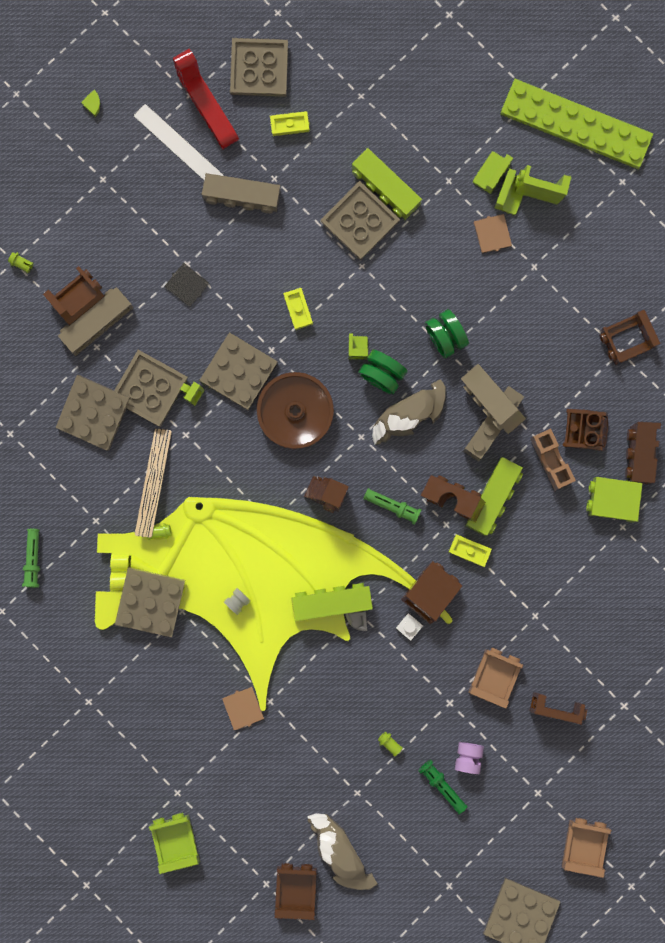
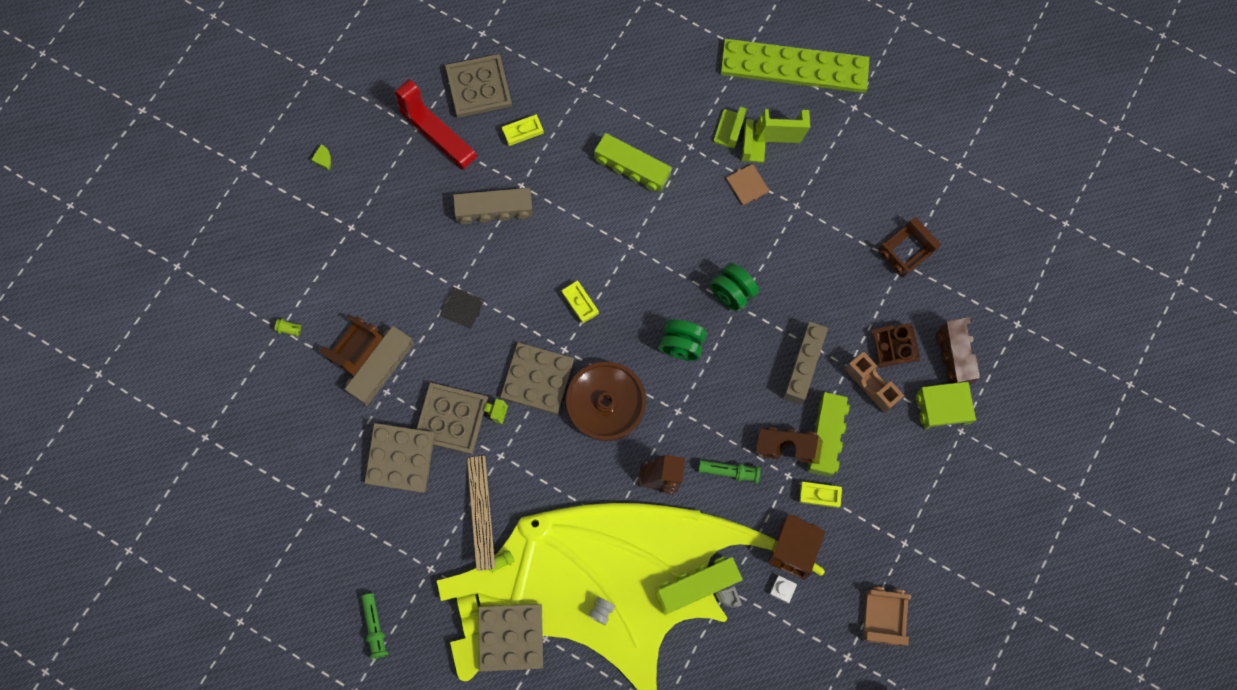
camera: 20 degrees left, 10 degrees down
(175, 142) = (414, 175): white sticker -> none
(358, 347) = (649, 324): lime panel -> none
(360, 220) = (616, 203): dark tan plate -> none
(408, 413) = (717, 377): dark tan animal -> none
(493, 399) = (800, 337): dark tan brick -> none
(537, 706) = (939, 631): reddish brown panel -> none

